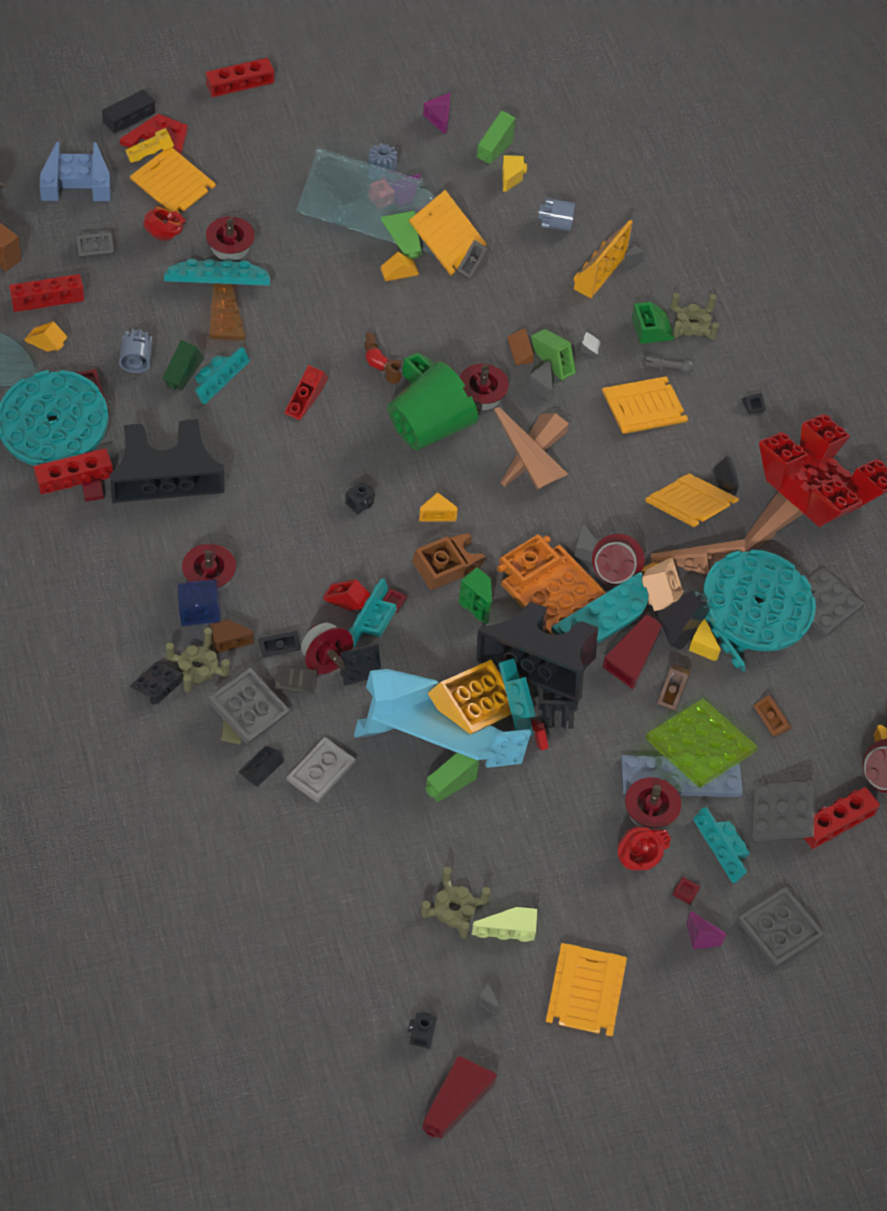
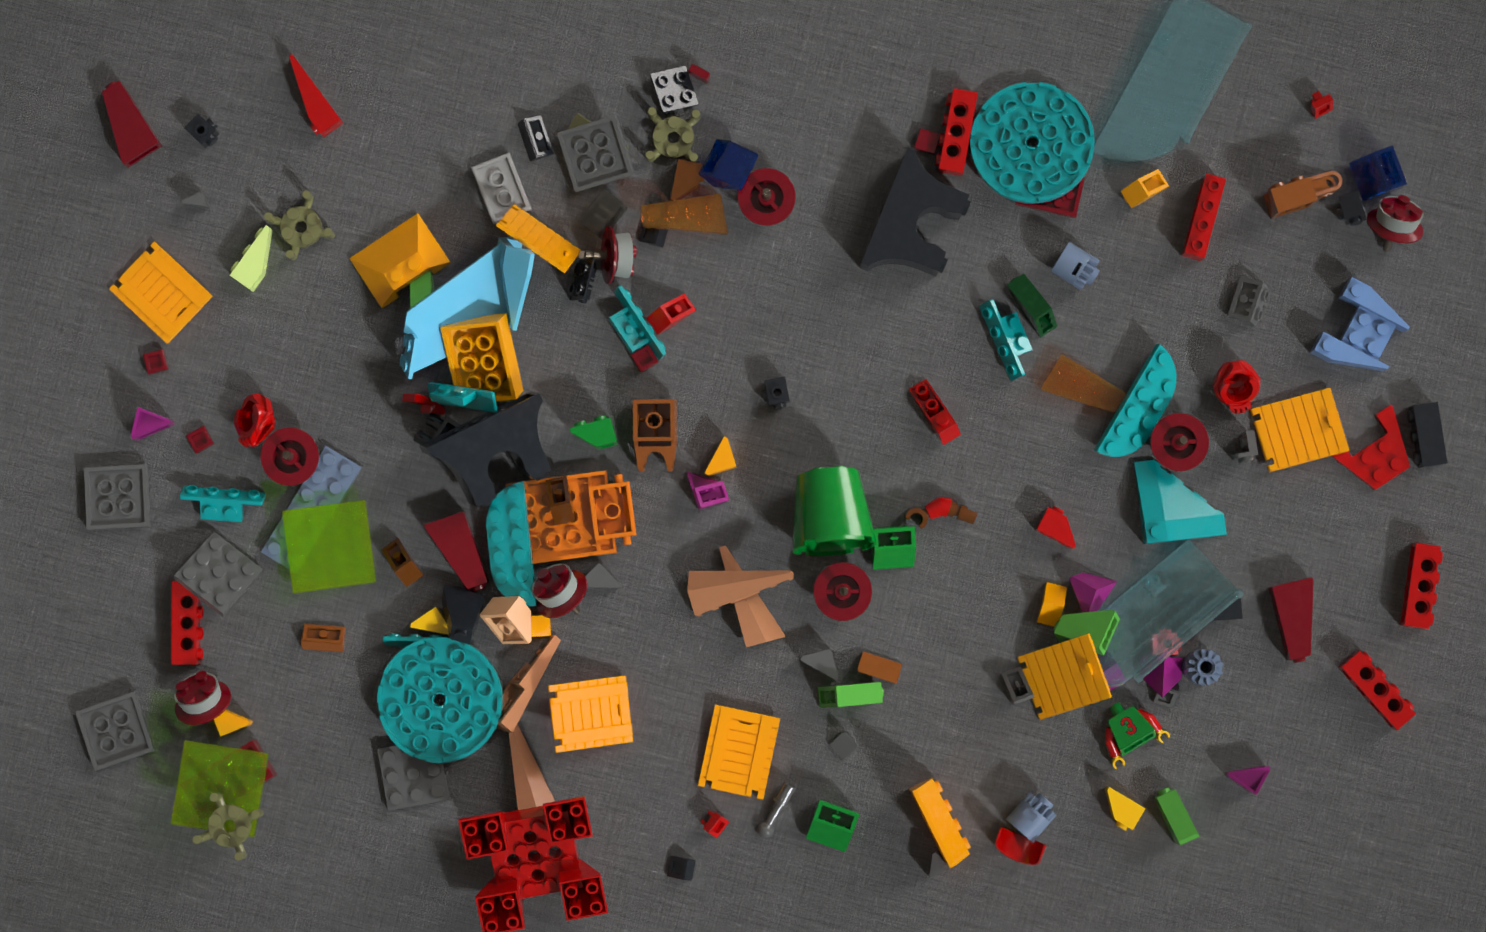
camera: 130 degrees right, 30 degrees up
(131, 667) = (699, 73): none -> dark red tile
(150, 146) = (1359, 427): yellow plate -> none
(207, 197) = (1248, 444): none -> dark grey bracket
(254, 614) = (696, 214): none -> clear orange wing
(281, 230) = (1171, 509): none -> teal slope
(308, 134) = (1293, 613): none -> dark red slope
(328, 73) = (1351, 669): none -> red brick
(339, 948) = (319, 111): none -> red slope
(341, 286) = (1056, 526): none -> red slope
(349, 702) = (538, 238): none -> light orange door
(373, 247) = (1091, 590): none -> magenta slope
(434, 811) = (399, 259): none -> light orange slope
(459, 185) = (1130, 730): none -> green torso
(471, 509) = (707, 491): none -> magenta slope
(549, 590) = (560, 500): none -> reddish brown slope
(582, 214) = (1019, 847): none -> red piece
(647, 962) = (155, 362): none -> dark red tile
(693, 312) = (830, 881): olive plate -> none
(708, 393) = (715, 824): none -> red tile
(726, 476) = (604, 773): black slope -> none

